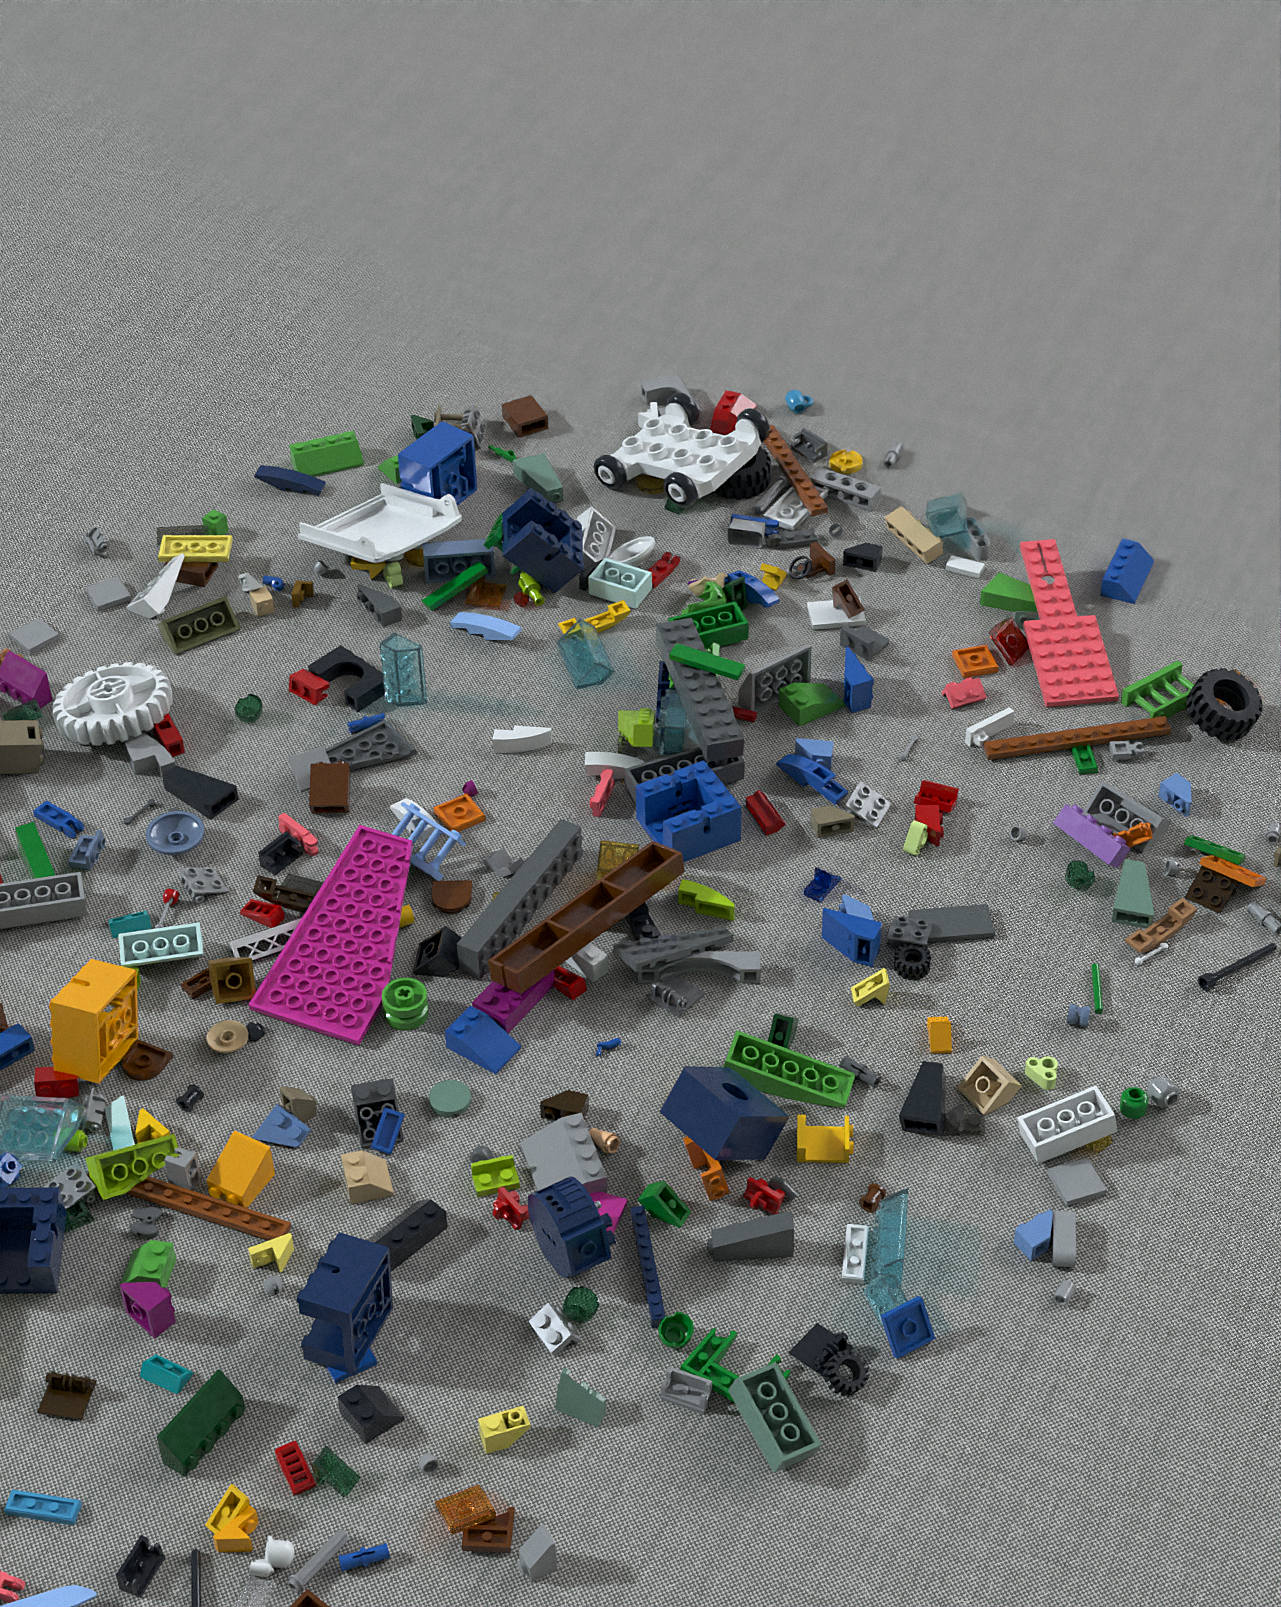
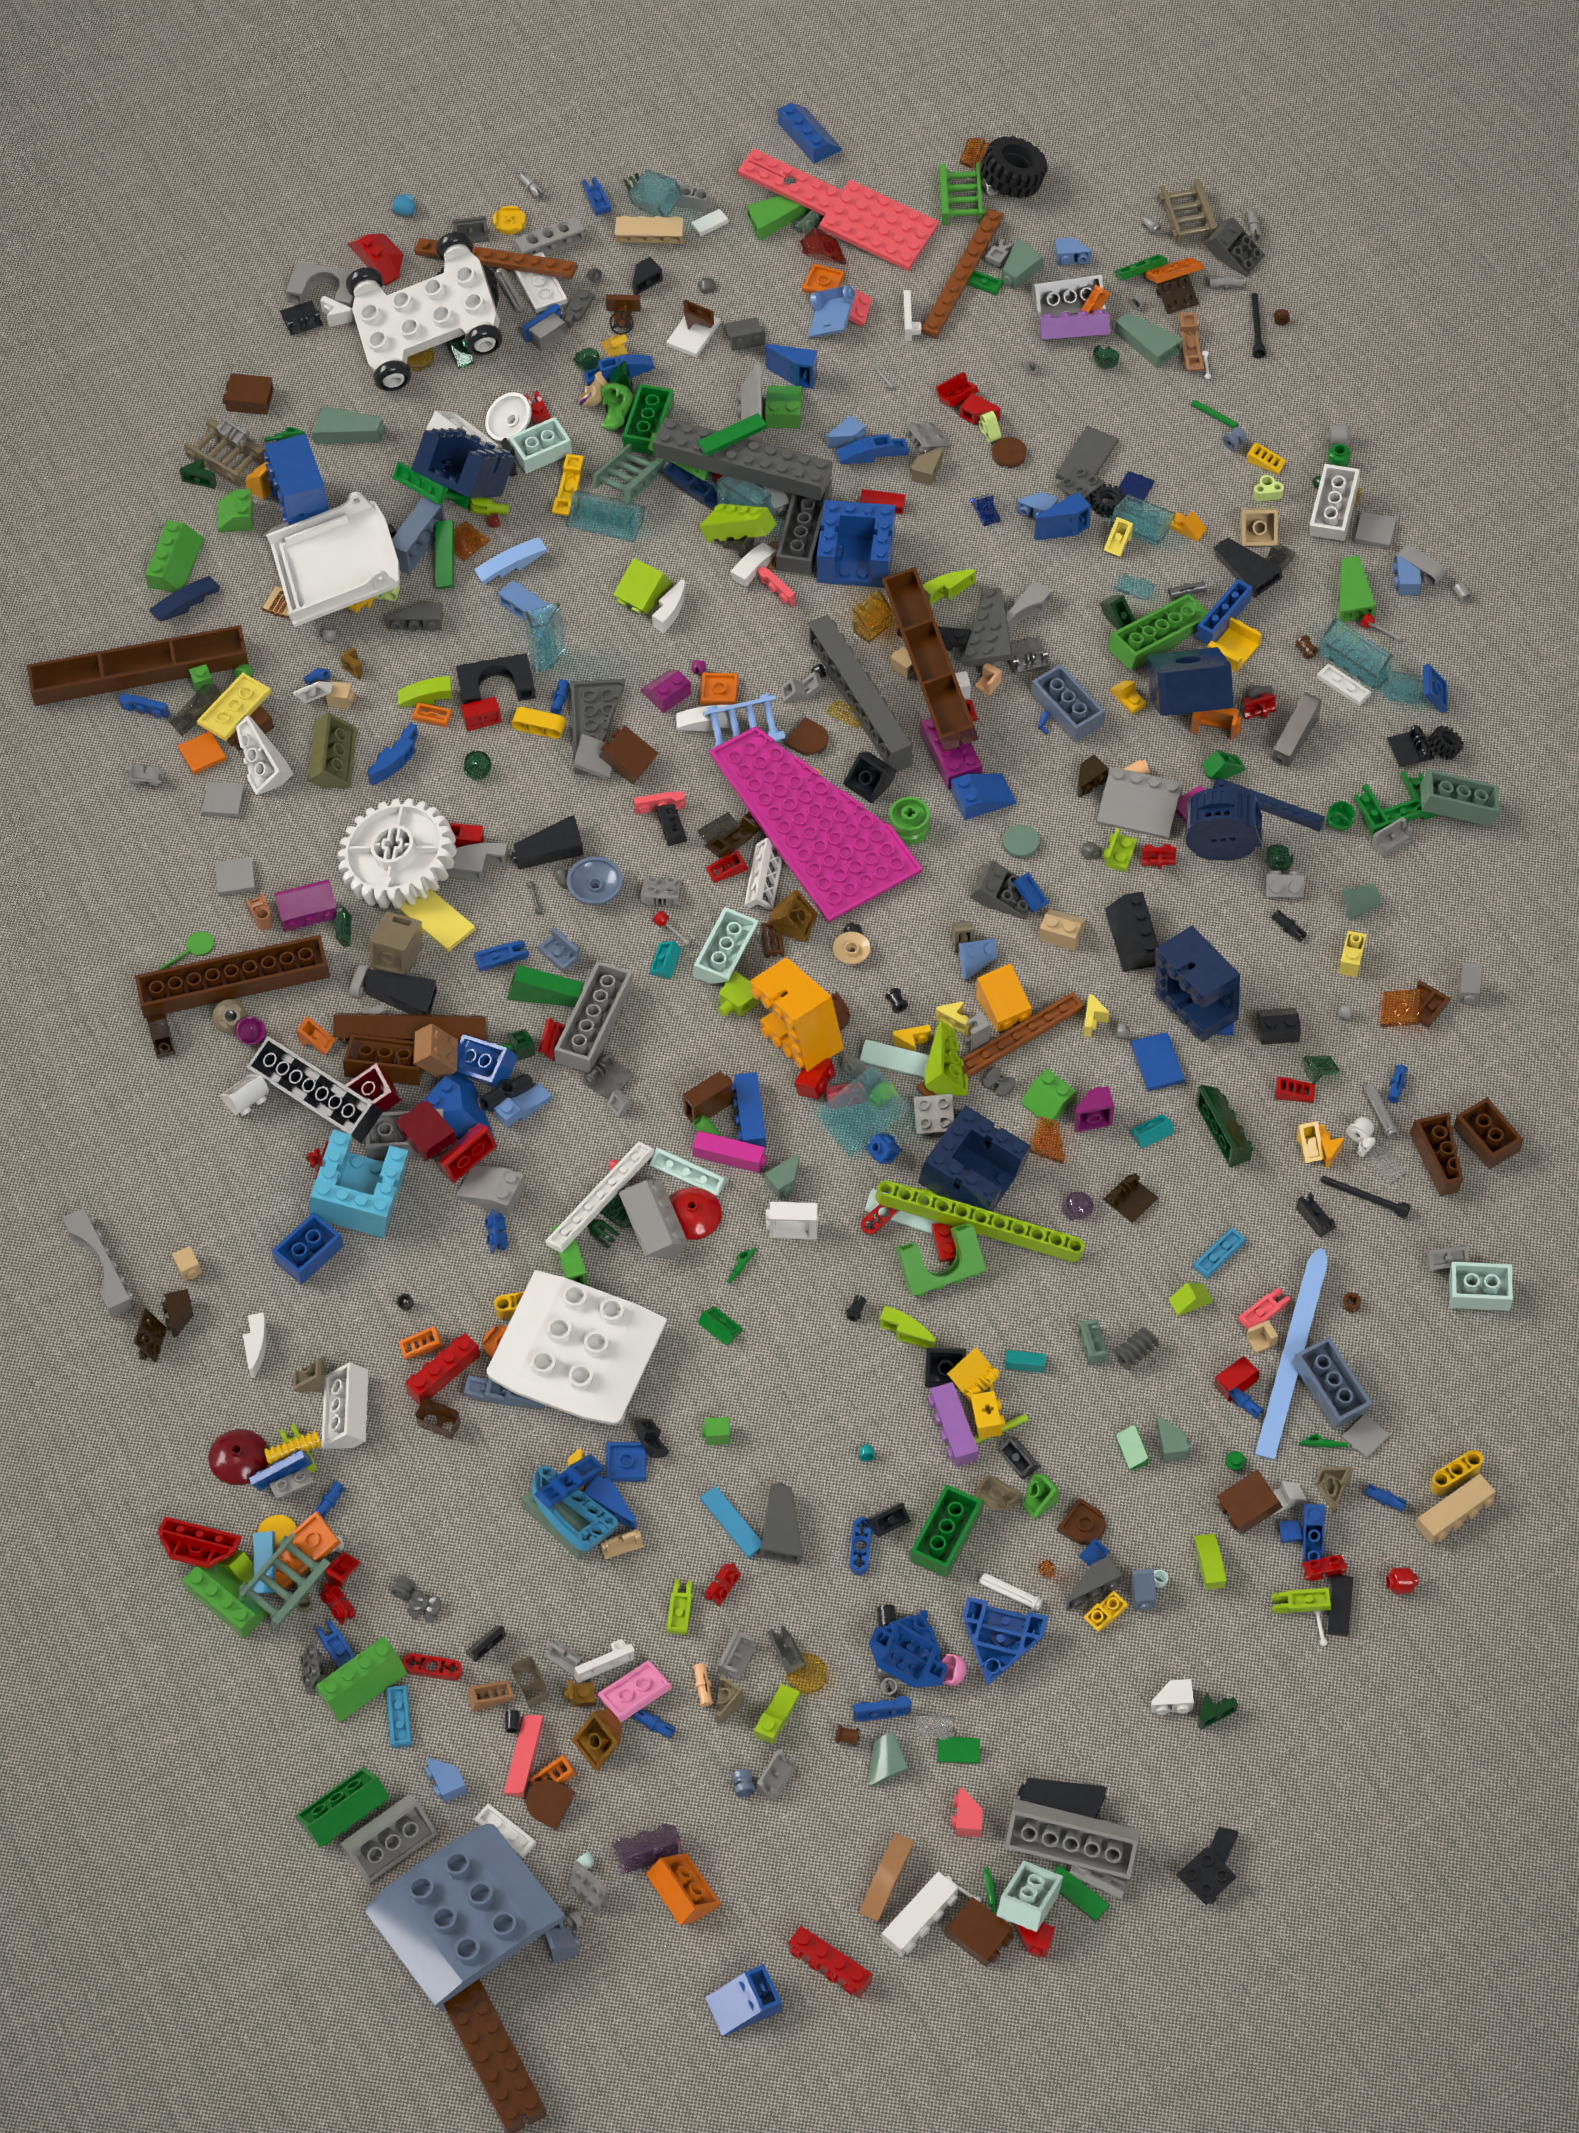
camera: 55 degrees left, 15 degrees up
(31, 1357) = (1078, 1206): none -> clear purple hair
(72, 767) = (439, 920): none -> light yellow tile
(95, 1292) = (1047, 1140): none -> clear orange wing
(143, 561) = (202, 752): none -> orange tile
(165, 508) = (144, 705): none -> blue hinge
(201, 486) = (136, 665): none -> reddish brown piece
(201, 1144) = (952, 1016): none -> light yellow slope
(222, 661) = (394, 759): none -> blue slope
(247, 544) = (244, 668): none -> bright green piece
(255, 1335) = (1157, 1061): none -> blue tile
(290, 670) = (431, 716): none -> orange tile
(305, 646) = (425, 692): none -> lime slope
(326, 723) = (538, 722): none -> yellow beam
(426, 782) = (667, 690): none -> magenta slope
(446, 657) = (519, 600): none -> medium blue brick
(505, 1359) = (1289, 925): none -> black pin
(524, 708) = (641, 587): none -> lime slope
(621, 984) = (990, 679): none -> light nougat panel
(624, 650) = (635, 484): none -> sand green fence
(628, 406) = (301, 317): none -> black hinge
(637, 1047) = (1068, 702): none -> sand blue brick
(740, 564) = (587, 359): none -> clear green hair
(828, 1031) = (1136, 588): none -> clear light blue slope
(862, 1109) = (1228, 606): none -> blue brick
(896, 597) = (707, 285): none -> dark grey piece
(904, 868) = (1009, 452): none -> reddish brown tile
(911, 994) = (1149, 520): none -> clear light blue slope
(920, 492) = (596, 197): none -> blue hinge
(948, 673) = (831, 310): none -> medium blue door
(951, 975) = (1136, 485): none -> clear blue piece
(952, 1232) = (1369, 621): none -> hinge
(977, 1200) = (1354, 591): none -> bright green slope
(1080, 1039) = (1262, 451): none -> yellow slope
(1125, 769) = (1021, 264): none -> sand green slope
(1265, 977) = (1281, 317): none -> reddish brown bush

